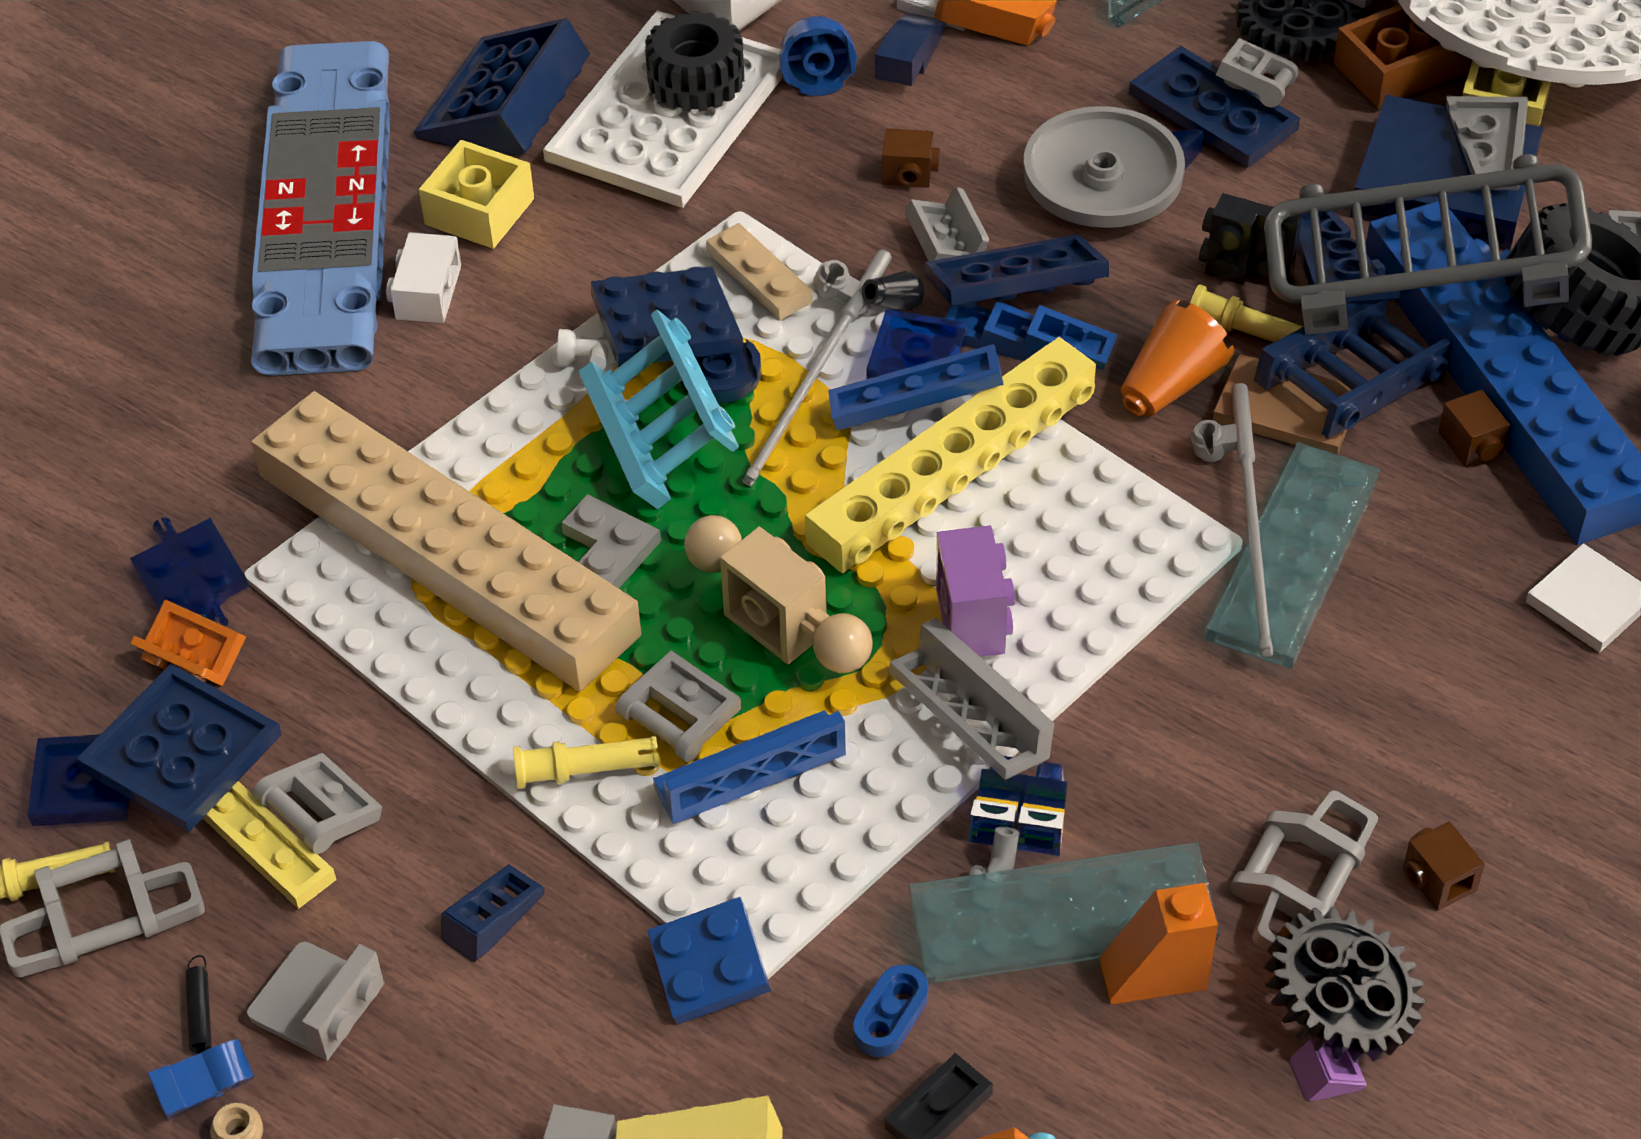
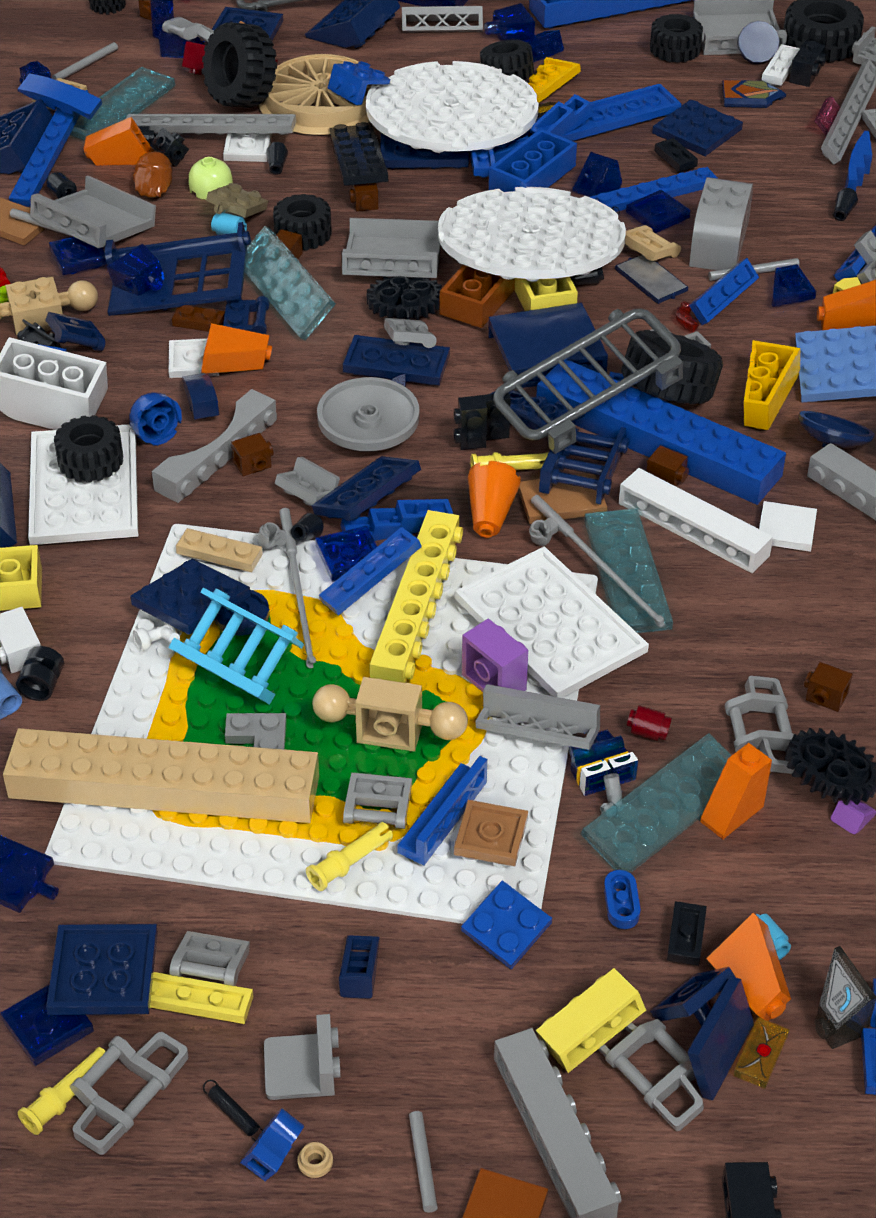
camera: 35 degrees left, 5 degrees down
(190, 642) = (47, 909): orange bracket -> none
(415, 333) = (40, 673): none -> black wheel
(785, 825) = (491, 833): none -> medium nougat plate
(802, 146) = (185, 472): none -> light grey arch
(1110, 576) = (558, 619): none -> white plate
(1134, 786) = (649, 723): none -> dark red brick
(1453, 526) = (696, 520): none -> white brick
(1489, 131) = (562, 314): light grey wing -> none
(1601, 95) = (591, 278): none -> black cone

